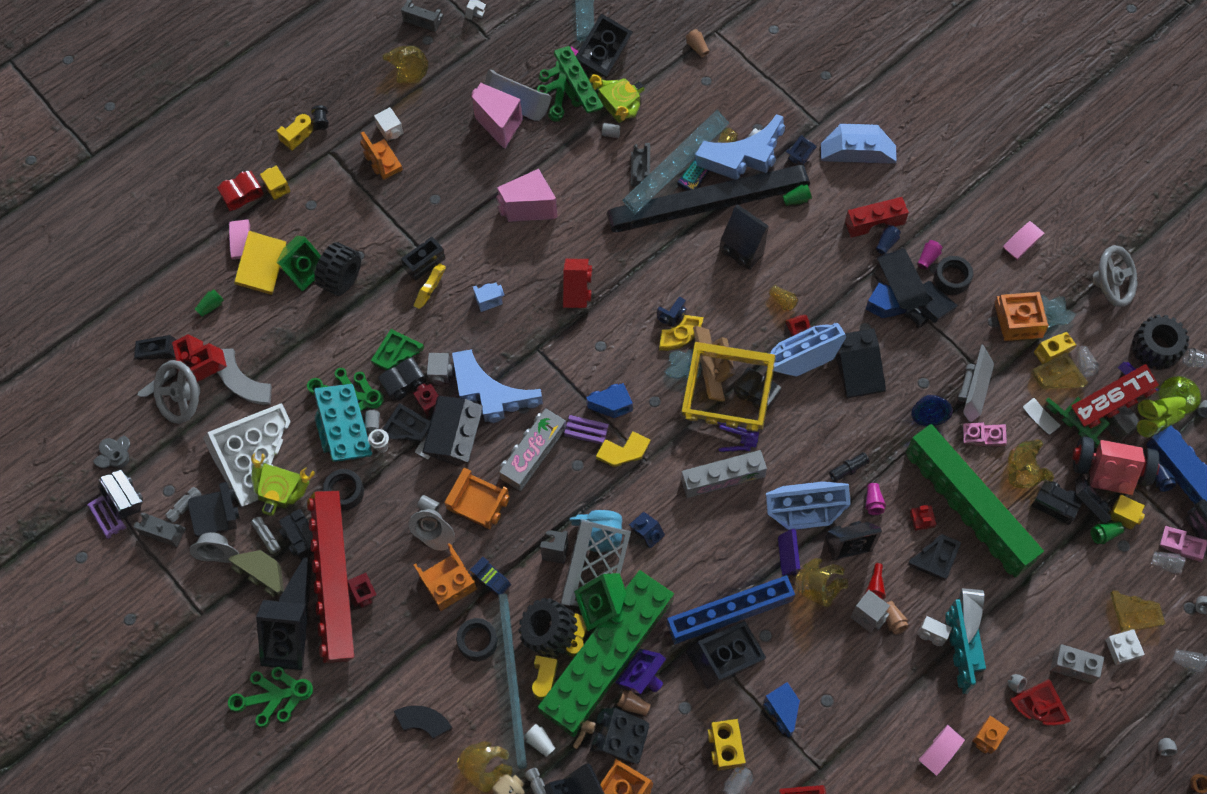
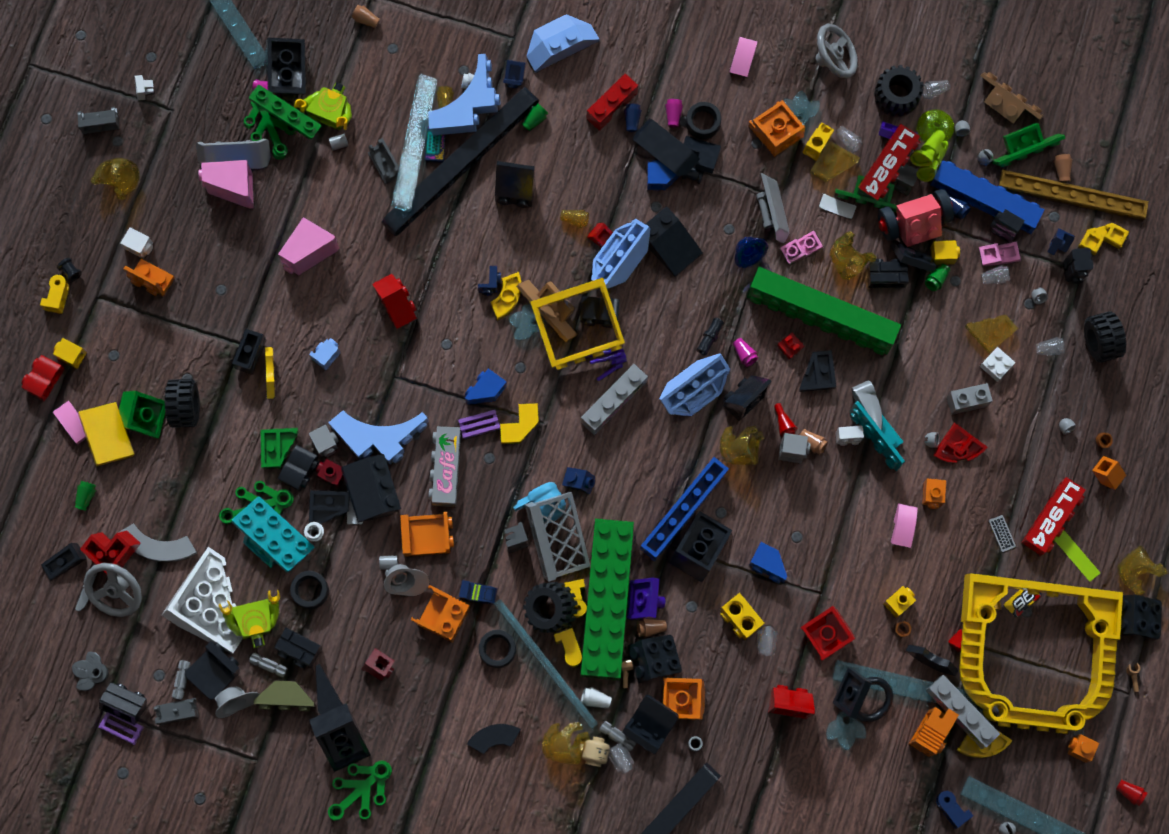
camera: 35 degrees left, 10 degrees up
(330, 577) = (348, 667): red brick -> none
(371, 420) = (295, 518): light grey hinge -> none
(601, 599) = (580, 561): green slope -> none
(789, 553) = (702, 435): dark purple slope -> none

